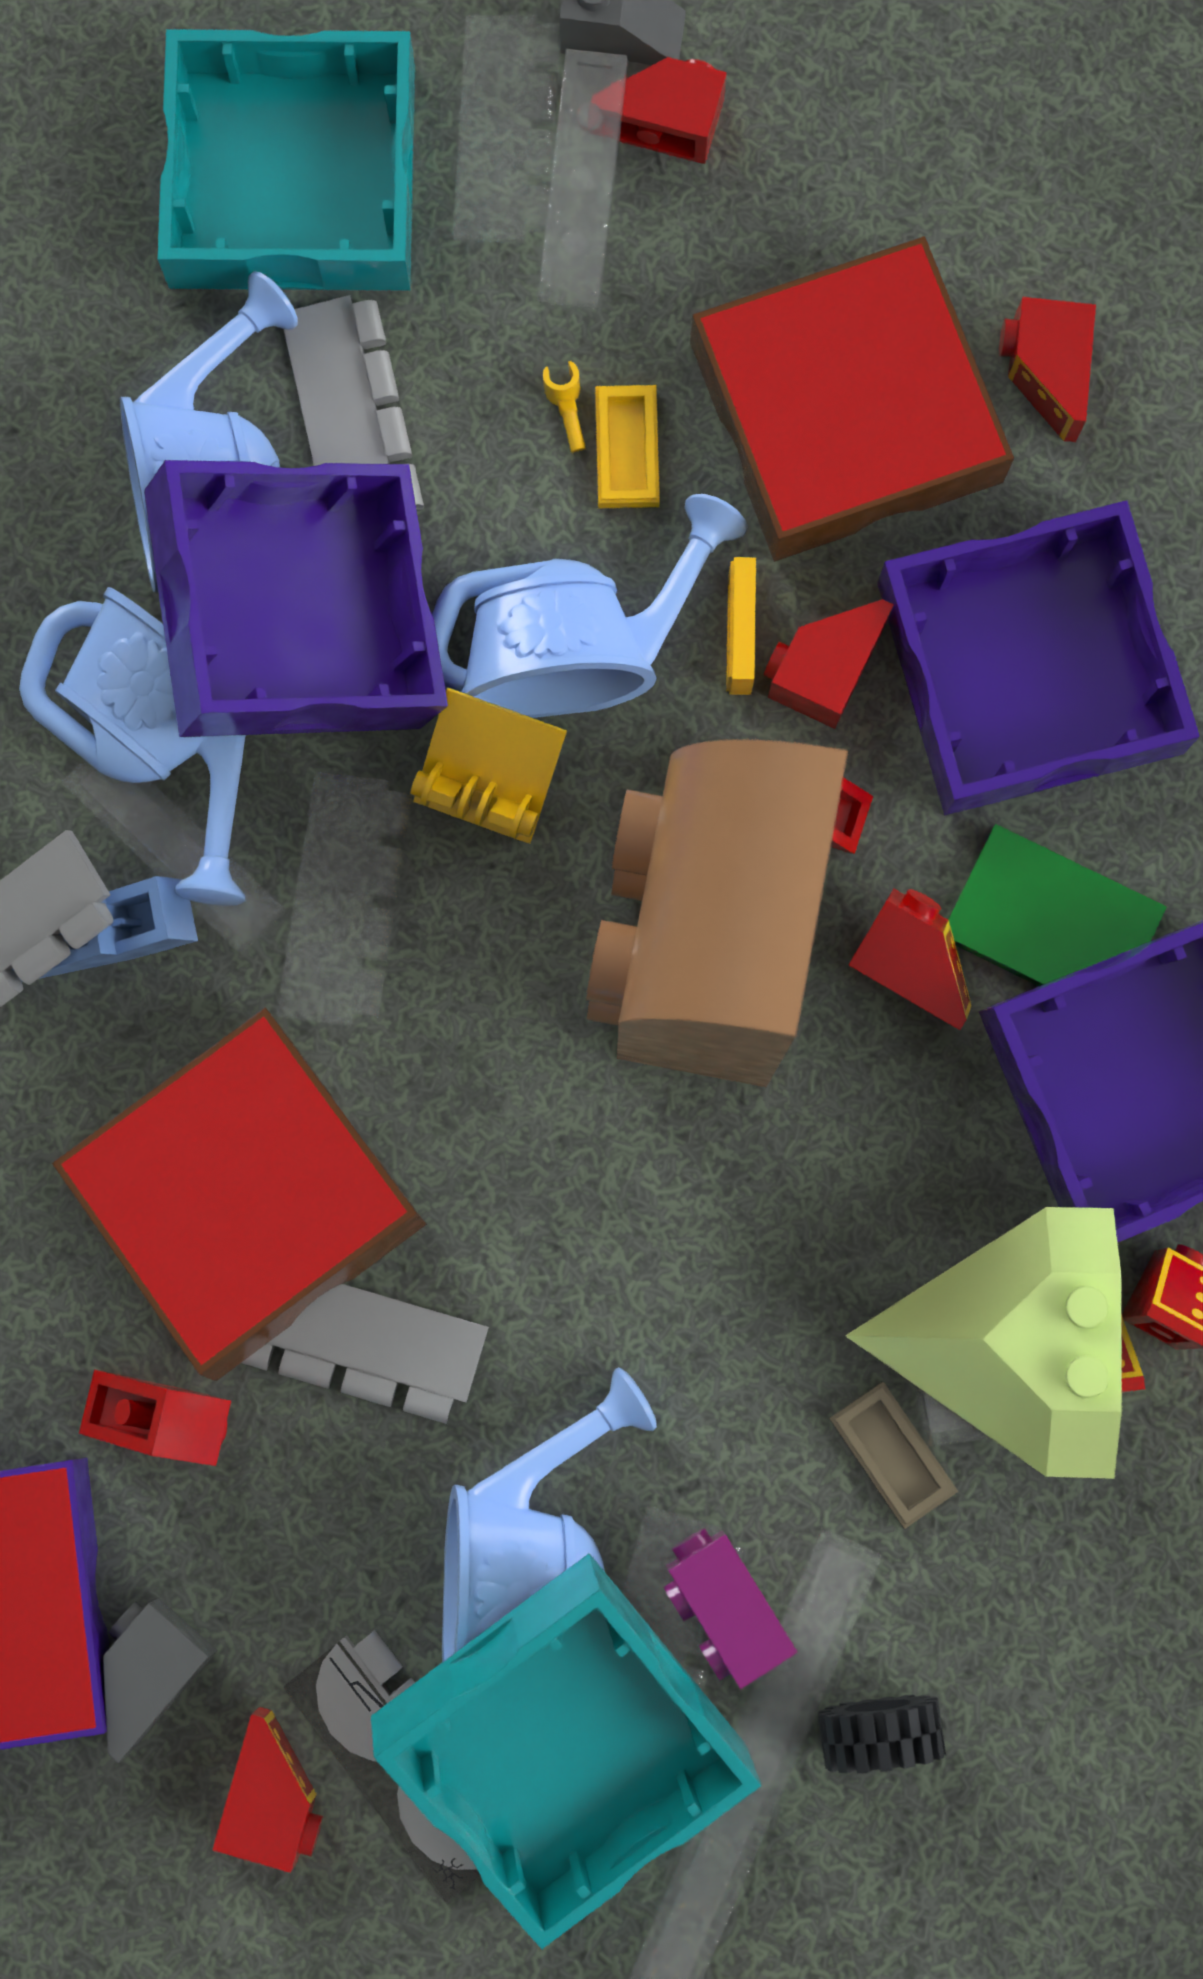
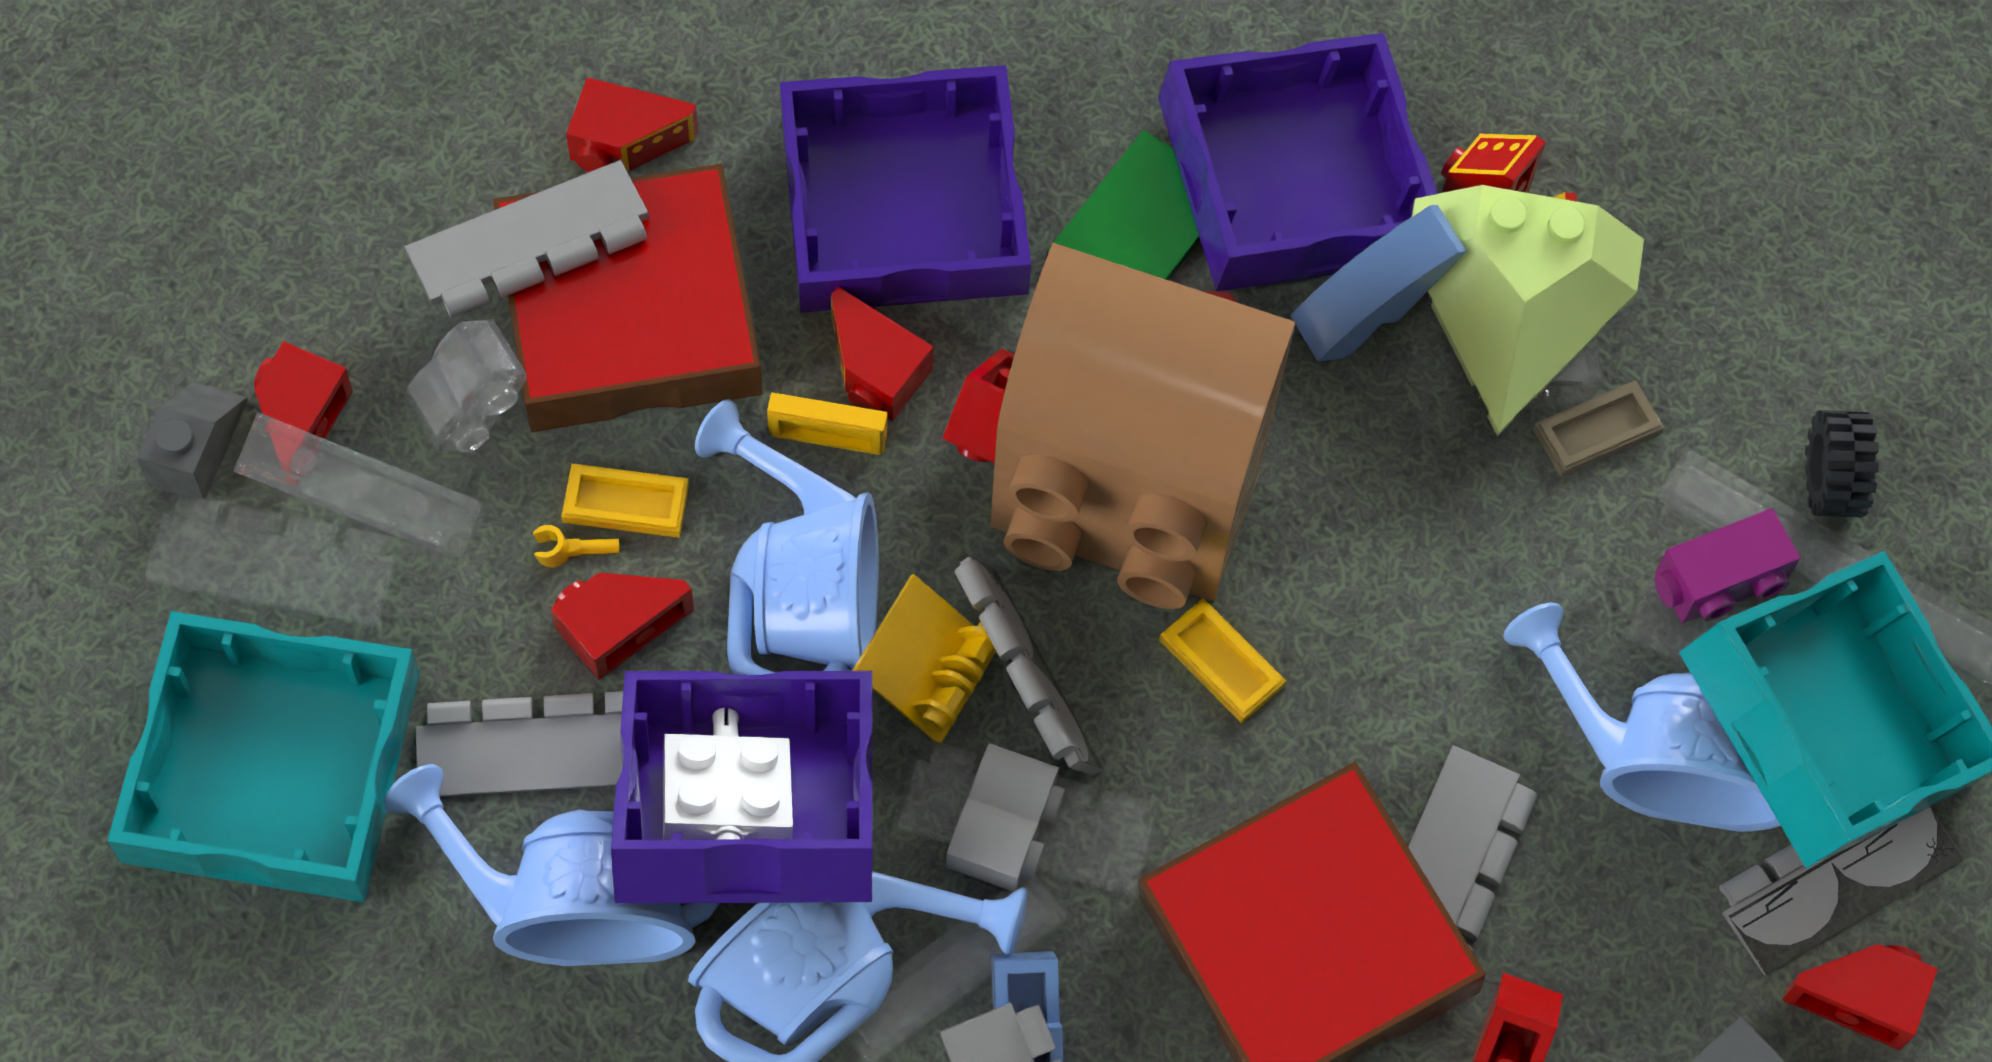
camera: 85 degrees left, 15 degrees down
(291, 582) = (726, 784): none -> white plate
(320, 868) = (1004, 817): none -> light grey brick
(479, 882) = (1029, 669): none -> light grey windscreen
(485, 454) = (618, 616): none -> red slope
(547, 1074) = (1222, 660): none -> yellow tile
(708, 257) = (466, 386): none -> clear brick
(893, 284) = (515, 238): none -> light grey windscreen
(1000, 1181) = (1378, 285): none -> medium blue slope

